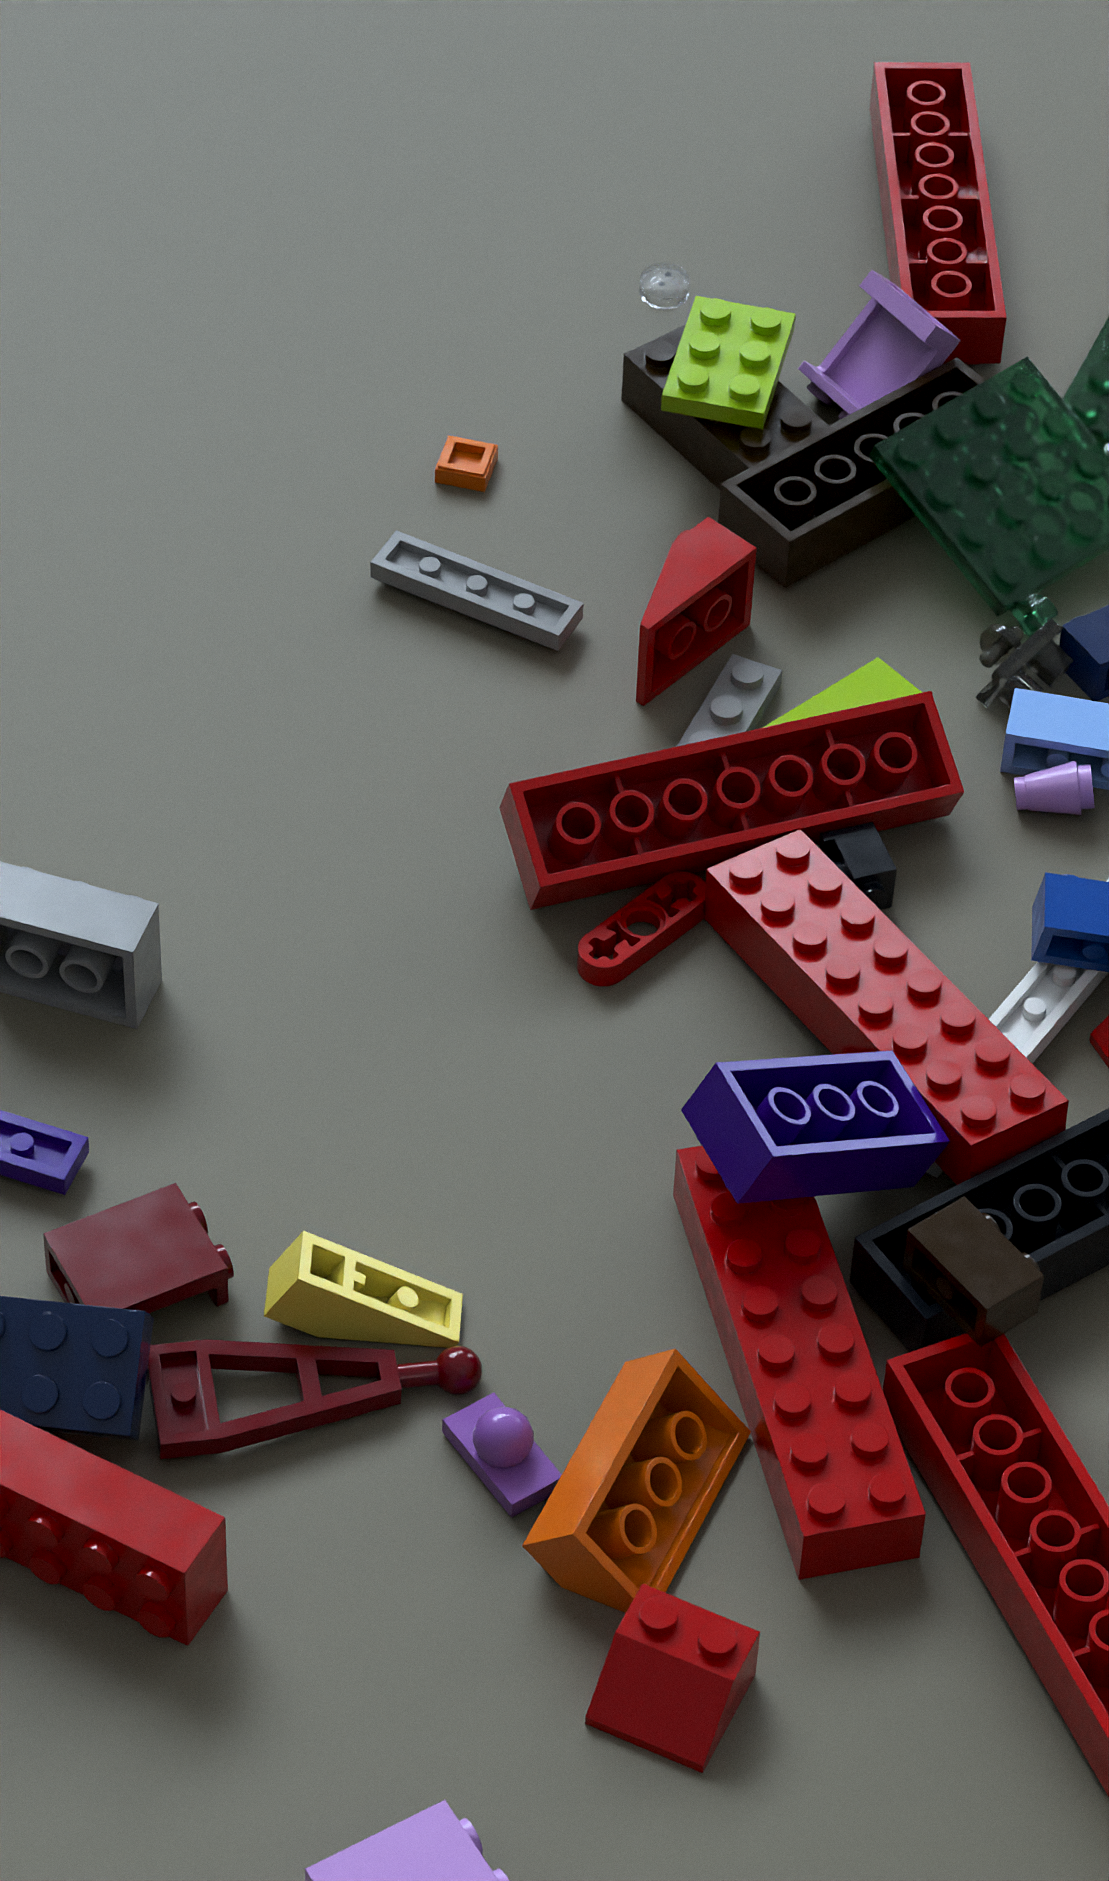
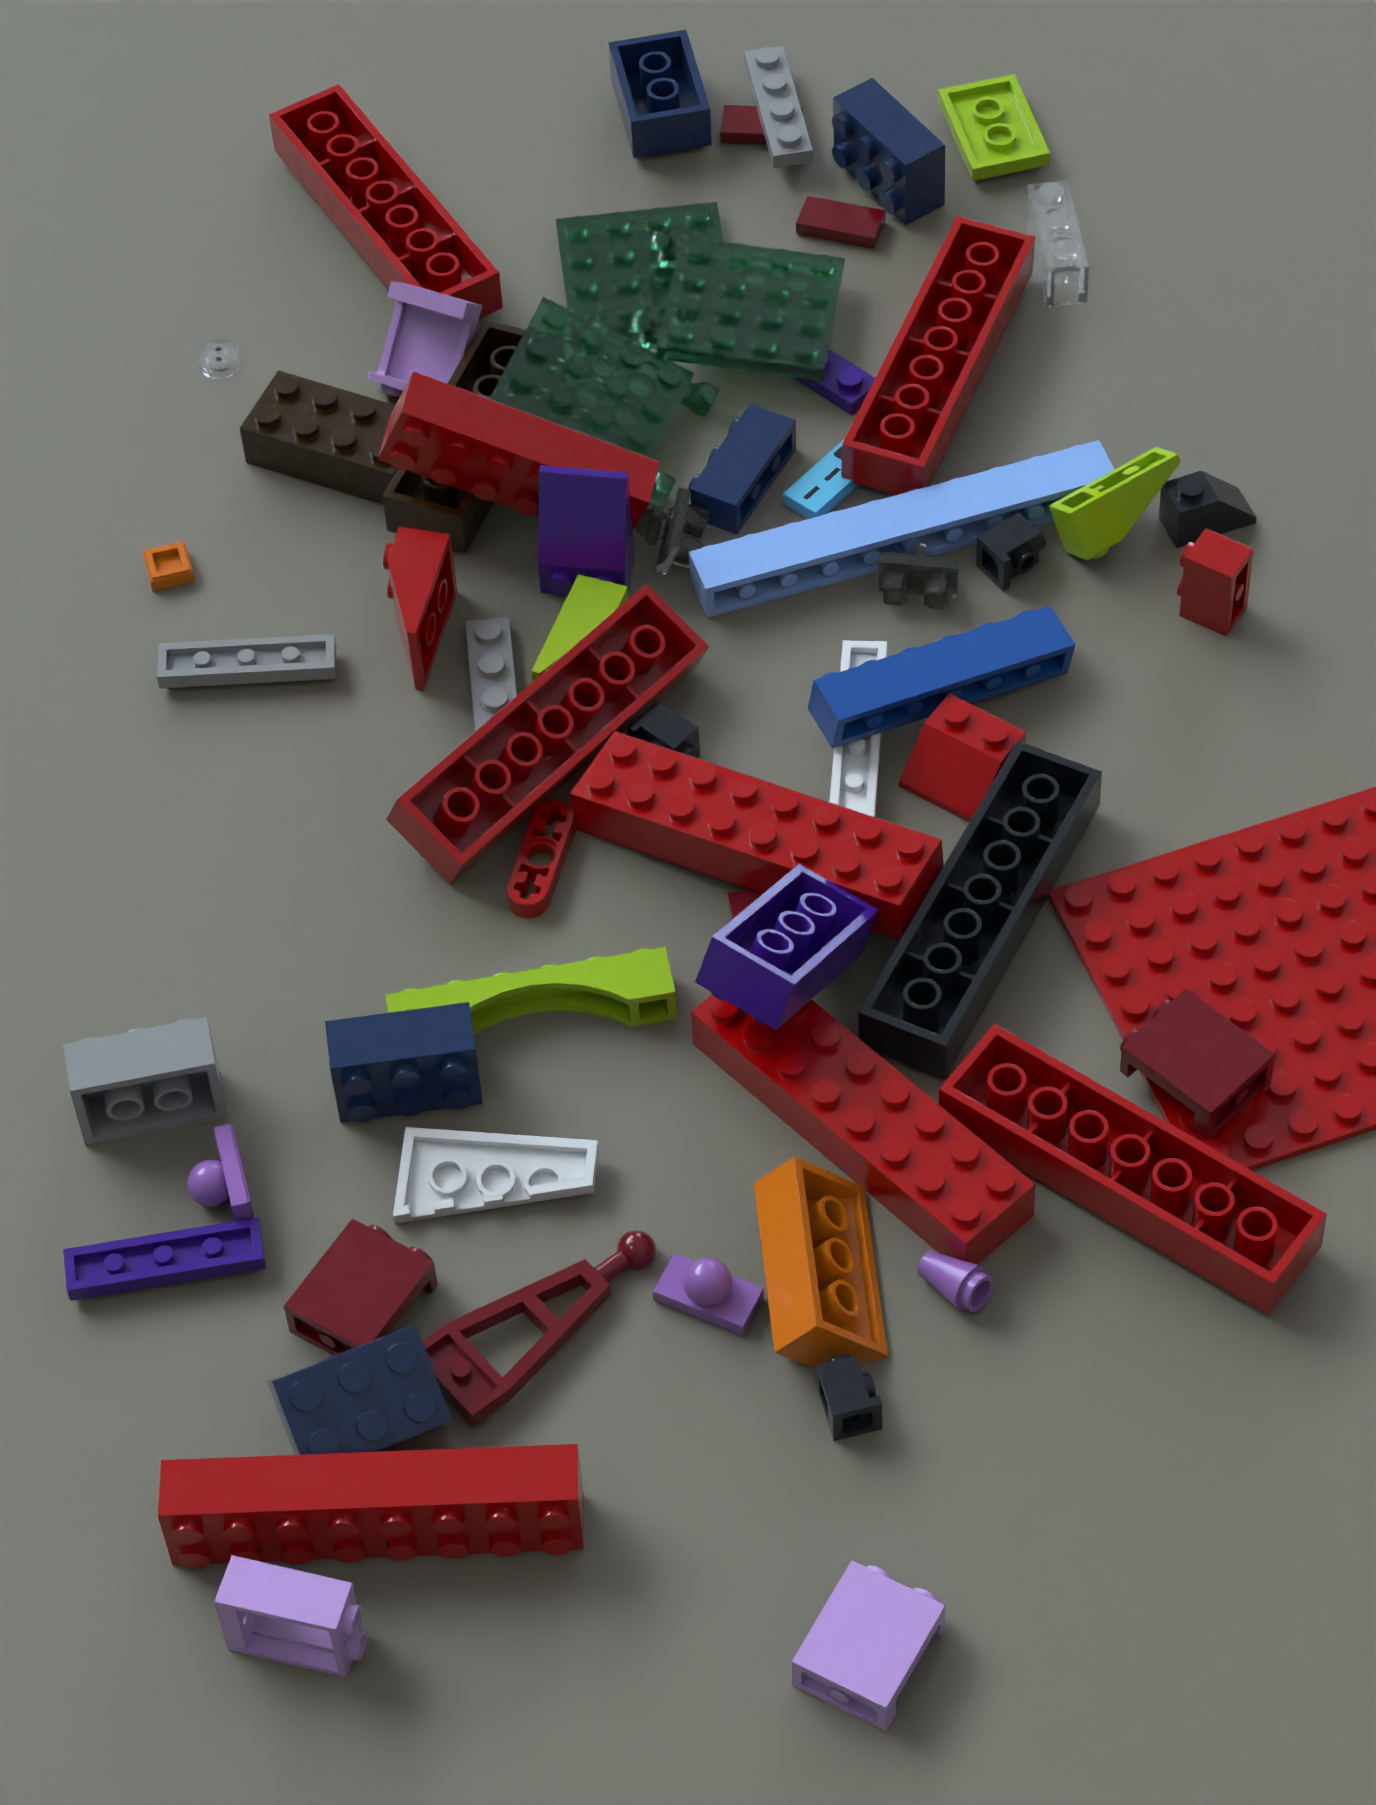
camera: 25 degrees left, 5 degrees up
(84, 1084) = (216, 1181): none -> medium lavender tile
(341, 1055) = (403, 1062): none -> dark blue brick
(350, 1202) = (482, 1171): none -> white wing
(358, 1298) = (529, 1235): light yellow slope -> none
(417, 1034) = (622, 987): none -> lime arch
(570, 1635) = (848, 1397): none -> black brick
(673, 1678) = (937, 1390): red slope -> none
(728, 362) = (326, 399): lime plate -> none
(780, 1579) = (959, 1281): none -> medium lavender cone
(880, 505) = (497, 448): none -> red brick
(911, 609) = (583, 527): none -> dark purple slope
(973, 1271) = (961, 995): dark brown brick -> none
(1056, 789) = (761, 612): lavender cone -> none

